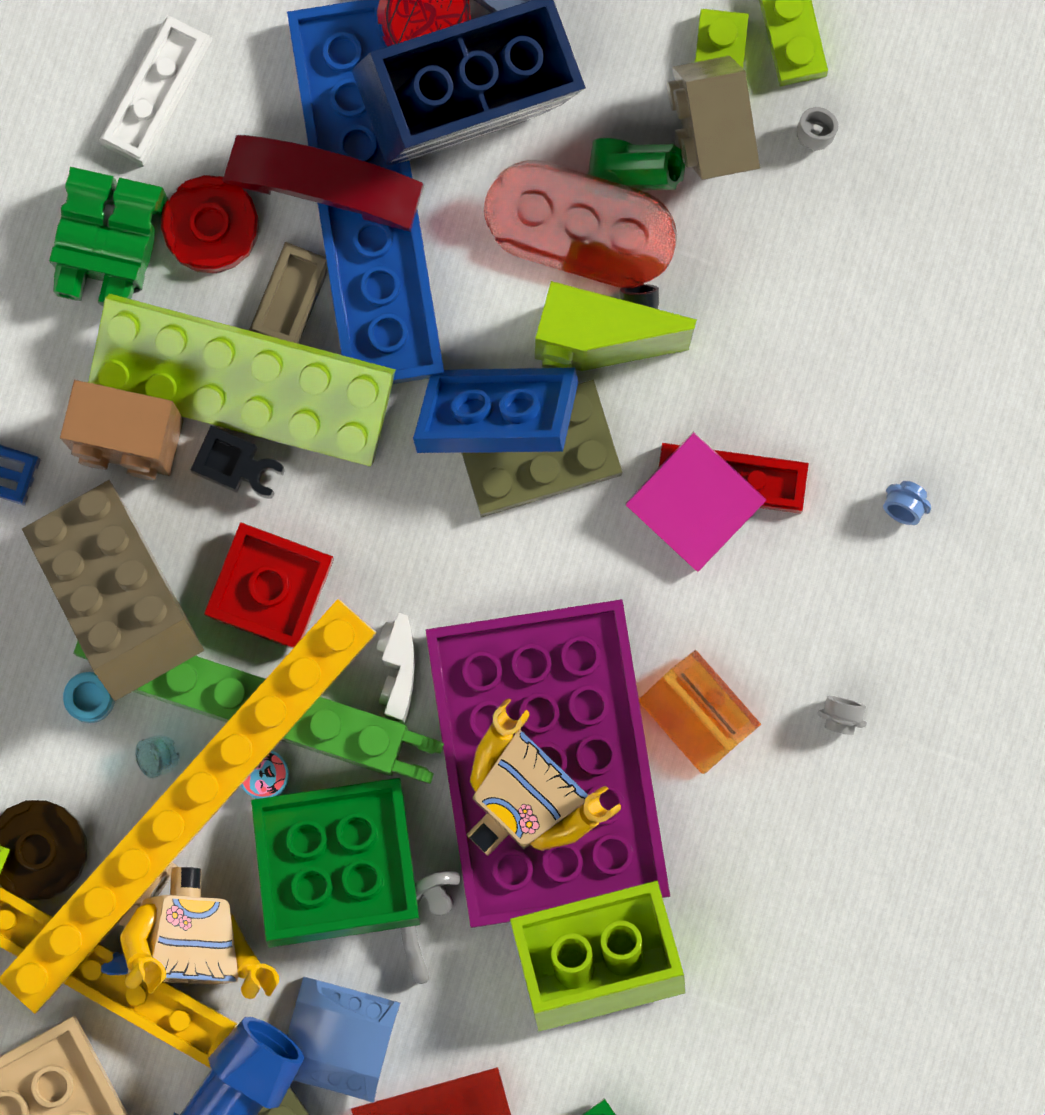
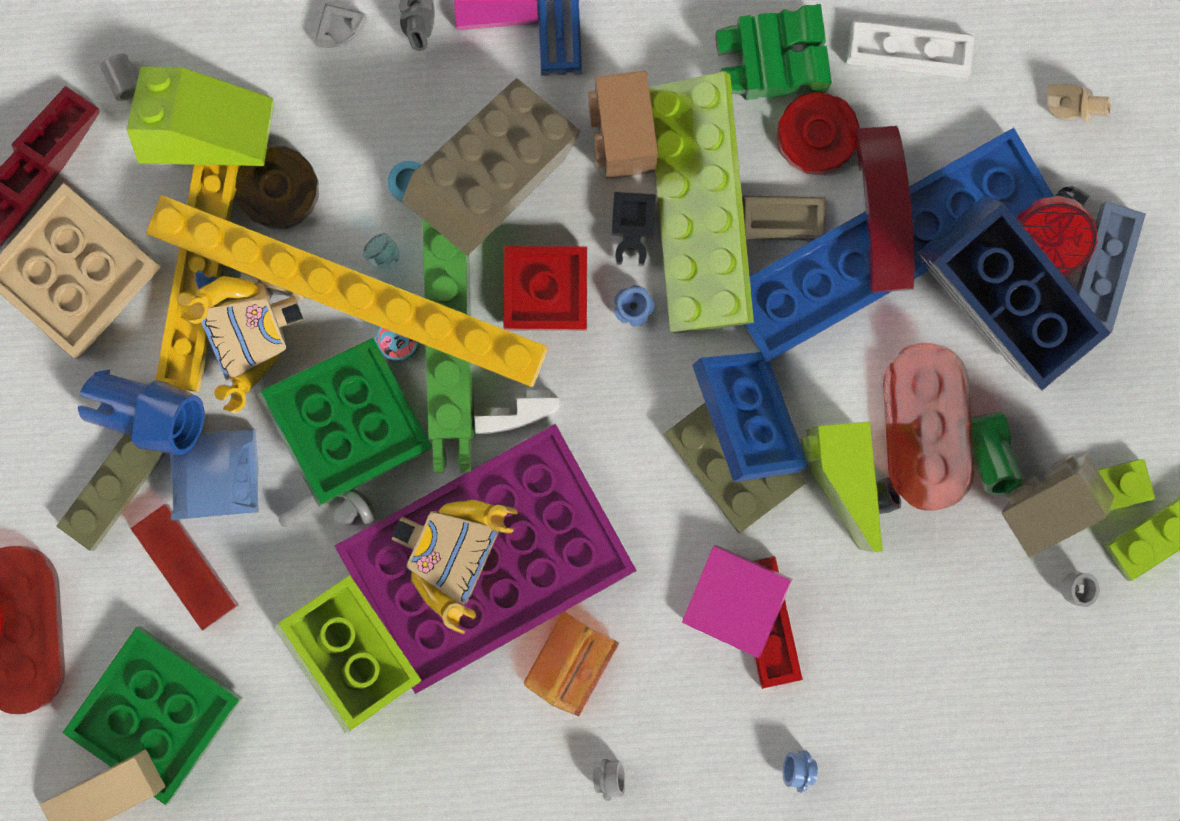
camera: 70 degrees right, 5 degrees up
(316, 486) = (626, 297): none -> medium blue plate

